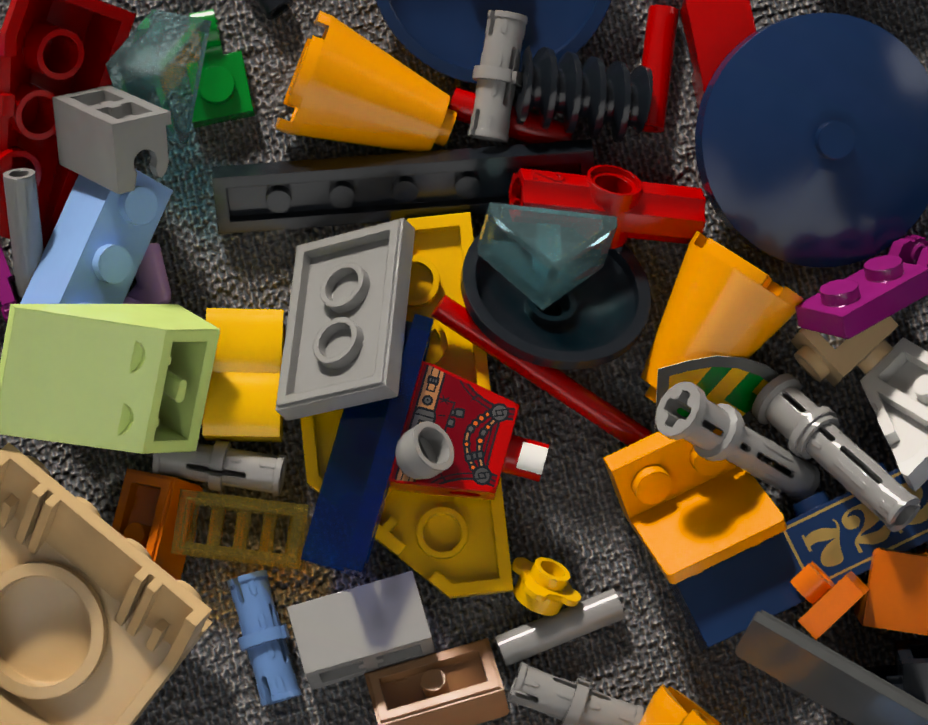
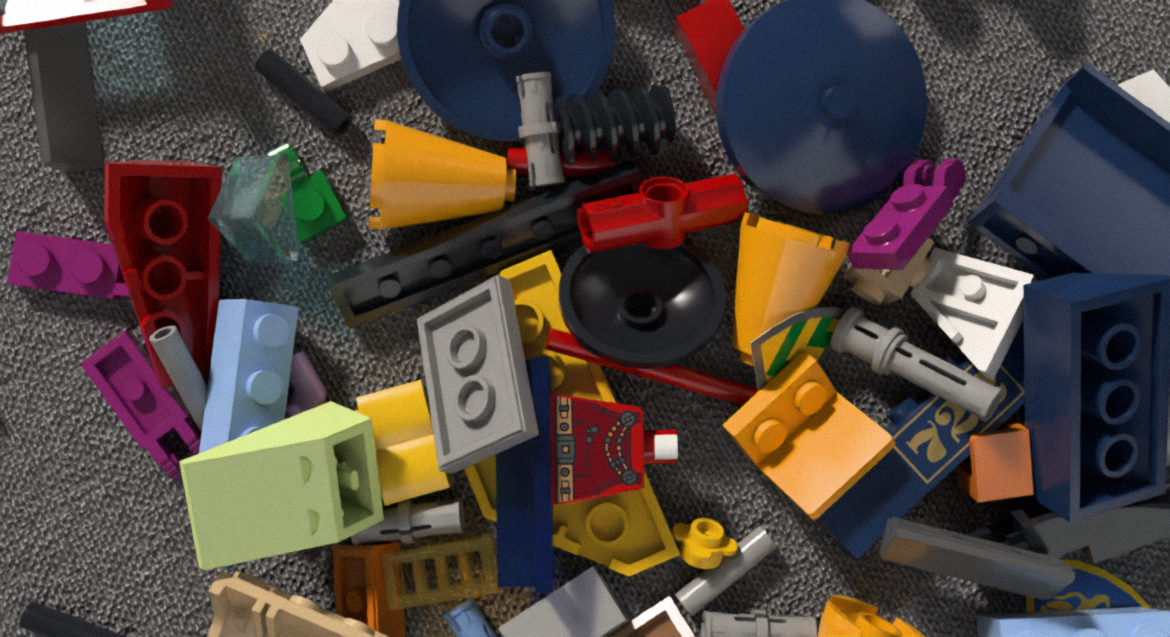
camera: 10 degrees left, 5 degrees up
(103, 133) = (223, 277): light grey hinge -> none
(424, 451) = (575, 475): light grey hinge -> none
(544, 248) = (623, 266): clear light blue slope -> none
(658, 56) = (666, 73): red piece -> none
(786, 473) = (872, 388): light grey pin -> none
(828, 599) = (948, 495): orange tile -> none

